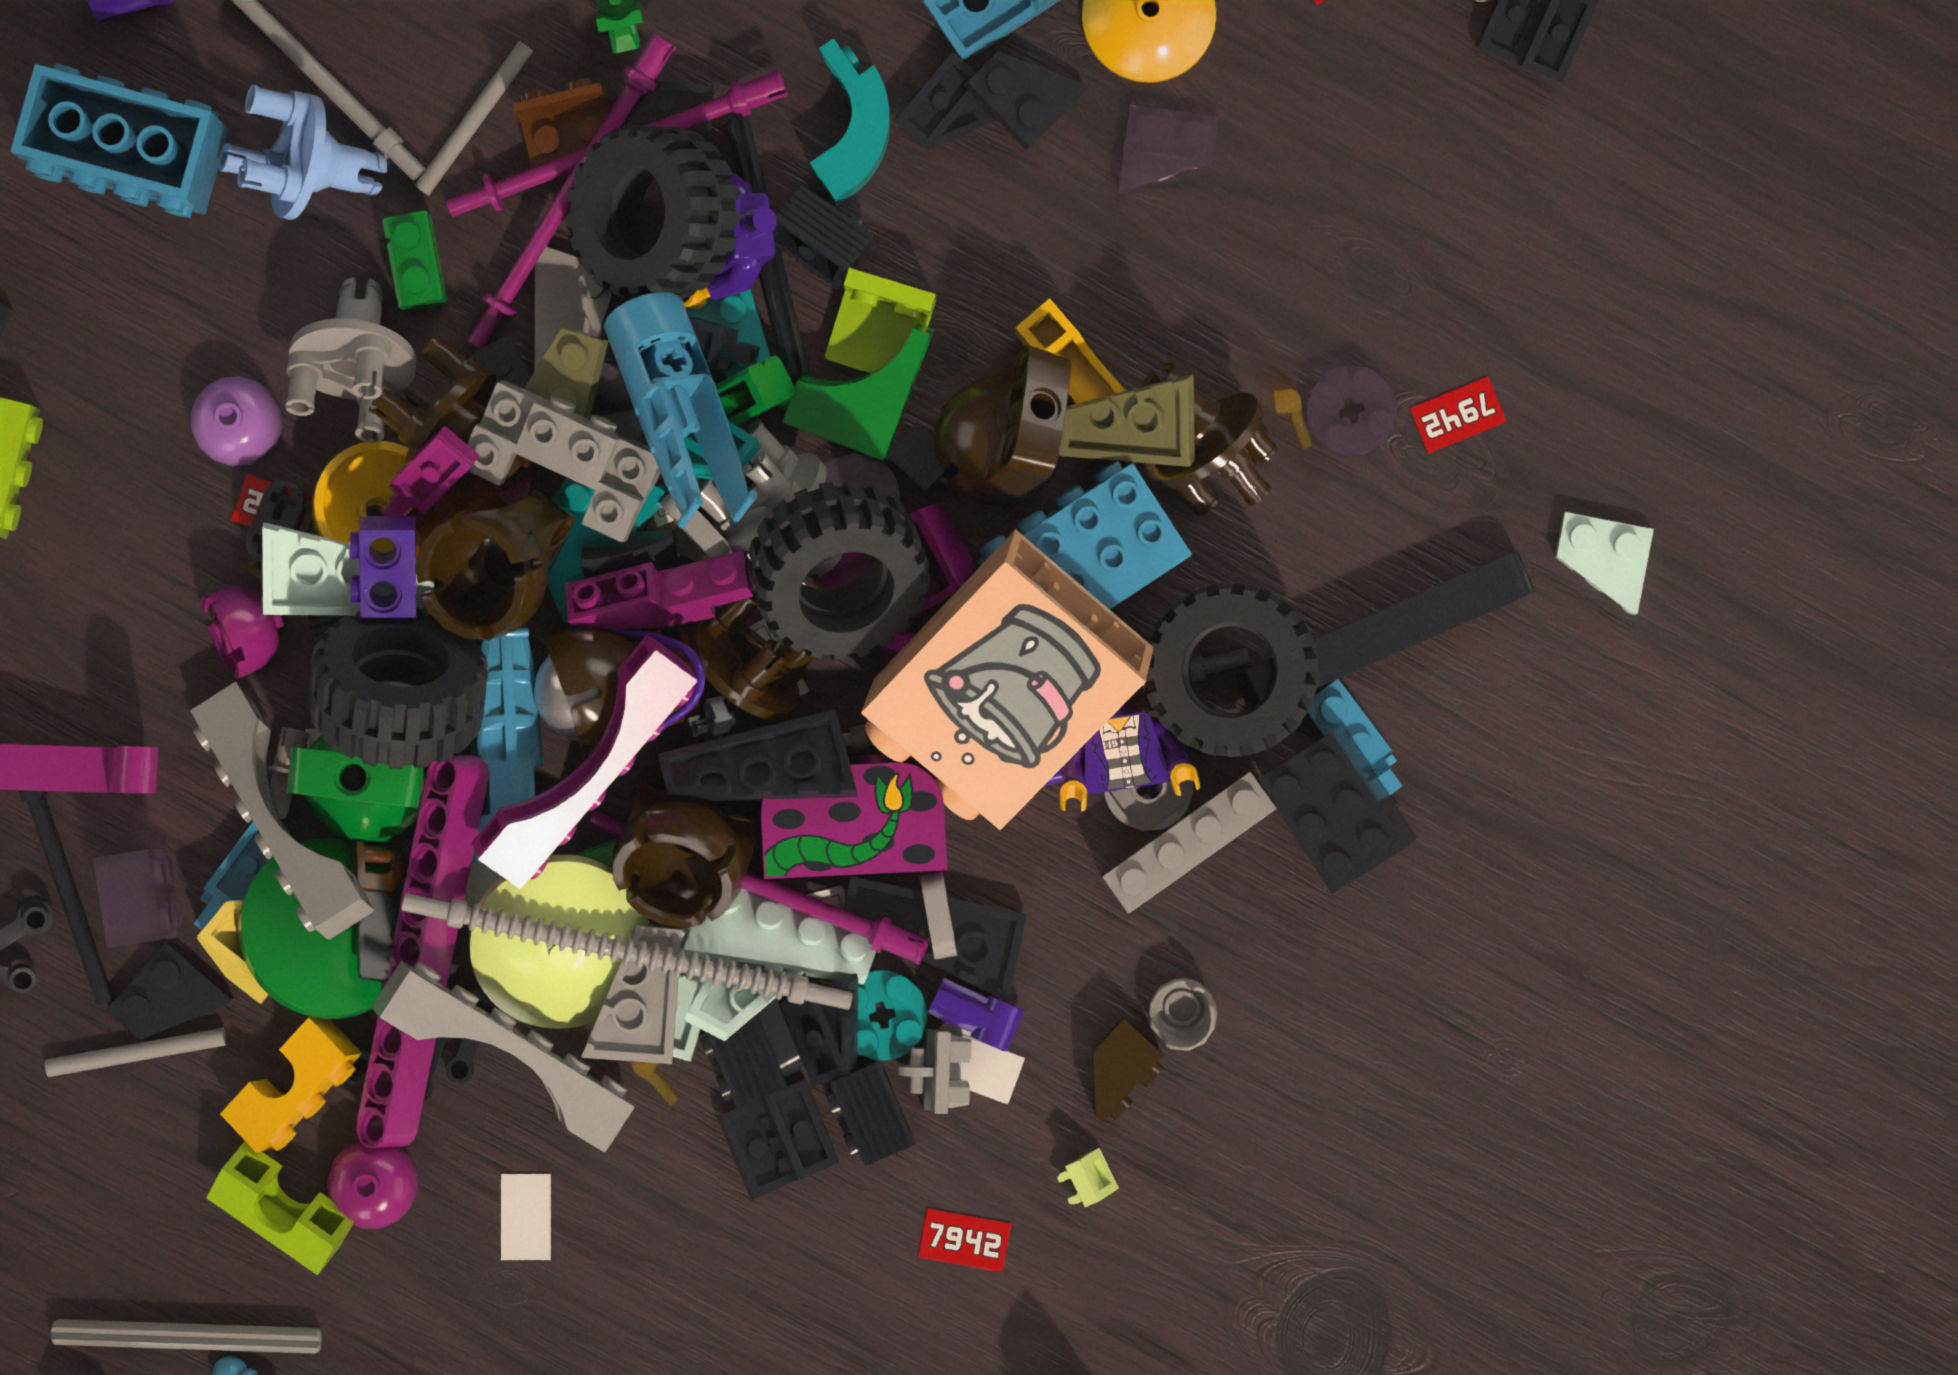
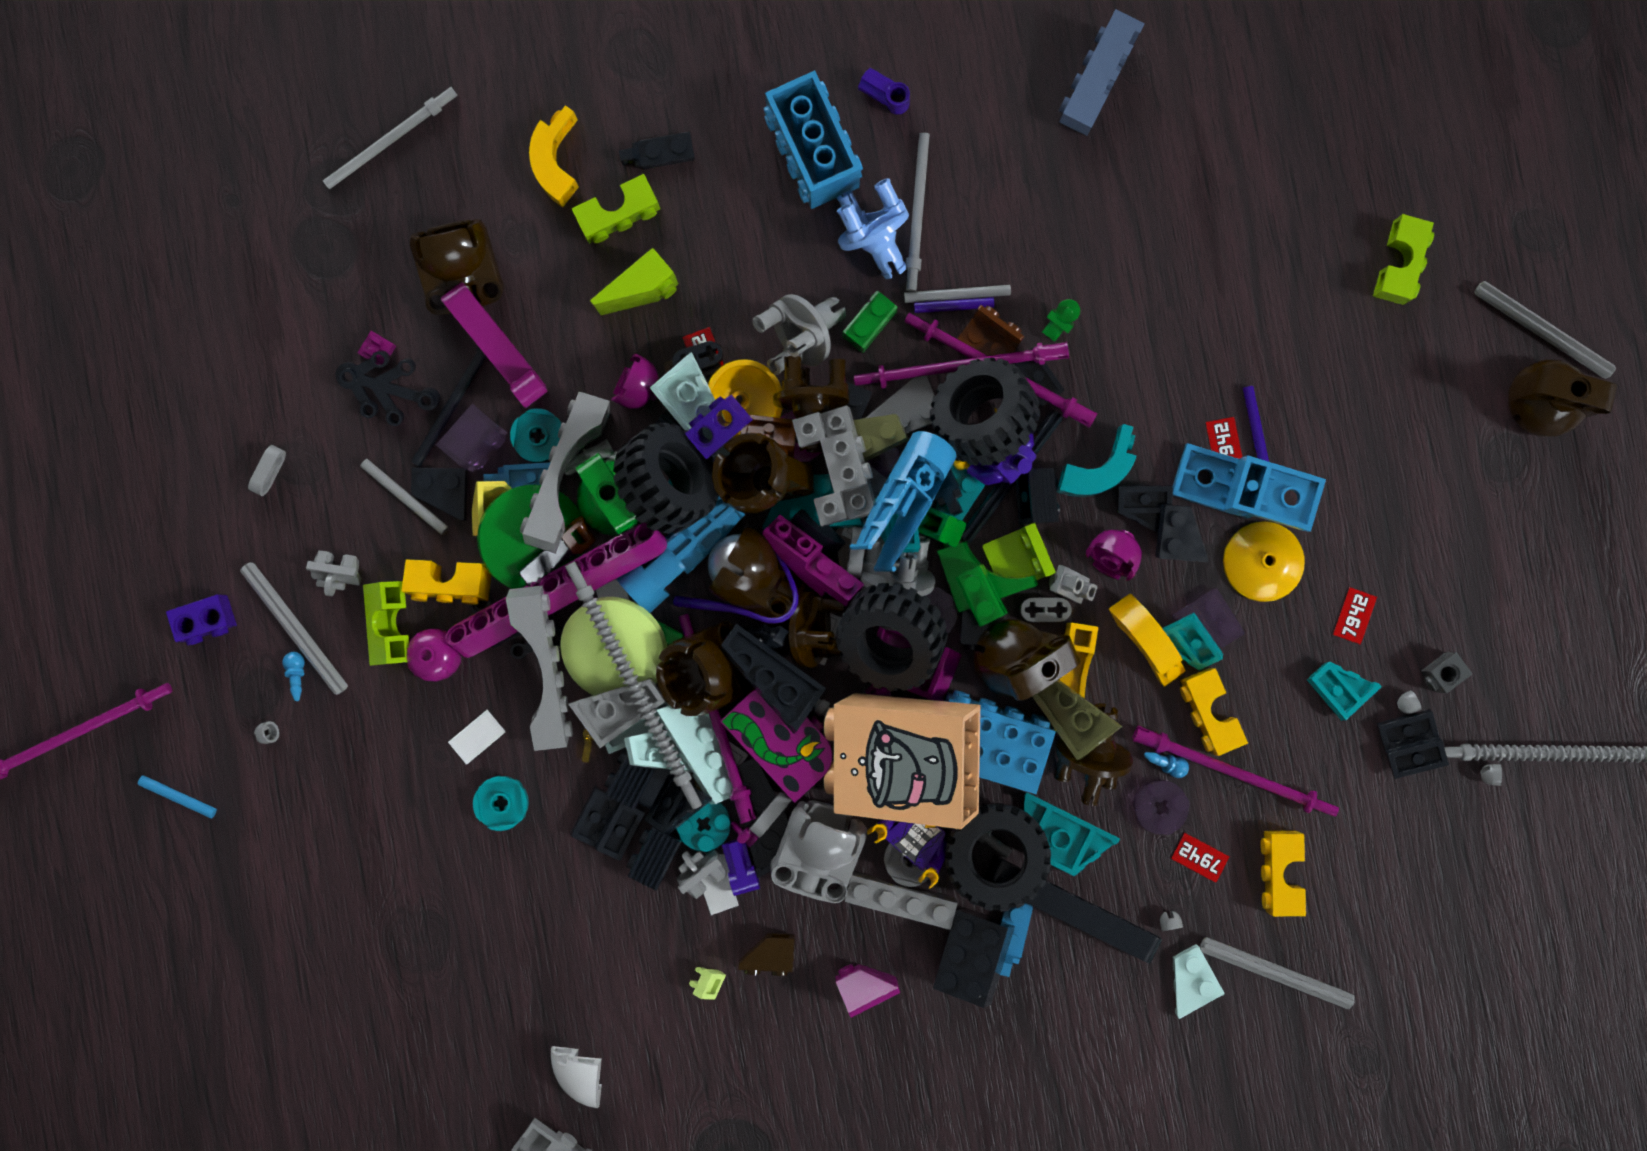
camera: 45 degrees right, 0 degrees up
(119, 515) = (639, 285): none -> lime slope
(162, 1226) = (334, 576): none -> light grey hips
(176, 814) = (528, 424): none -> teal plate
(236, 421) = (729, 301): medium lavender cylinder -> none
(430, 473) = (778, 410): magenta hinge -> none
(484, 135) = (952, 305): none -> dark purple bar
(527, 832) = (647, 594): arch -> none
(643, 1279) = (489, 814): none -> teal plate
(883, 412) = (981, 595): none -> green brick
(940, 972) = (744, 836): none -> magenta hand
(964, 1240) = (632, 947): red sticker -> none
(971, 286) = (1072, 585): none -> light grey hips
(977, 197) = (1115, 554): none -> magenta cylinder
(983, 354) = (1045, 616): none -> light grey beam
(1037, 893) = (818, 851): none -> light grey piece
(1122, 245) = (1149, 638): none -> yellow arch
(1169, 197) = (1193, 642): none -> teal wing
(1182, 1014) = (819, 964): light grey hair -> none
(1245, 237) = (1200, 692): none -> yellow arch
(1258, 981) = (864, 987): none -> slope
(1270, 341) = (1162, 743): none -> magenta bar
(1287, 402) = (1141, 775): clear yellow hand -> none
(1293, 561) = (1071, 839): none -> teal wing
(1316, 348) = (1175, 766): none -> dark azure bar
(1393, 54) = (1342, 689): none -> teal wing
(1508, 522) = (1170, 923): none -> light grey hinge
(1530, 306) = (1280, 850): none -> yellow arch
(1683, 440) = (1277, 973): none -> light grey axle

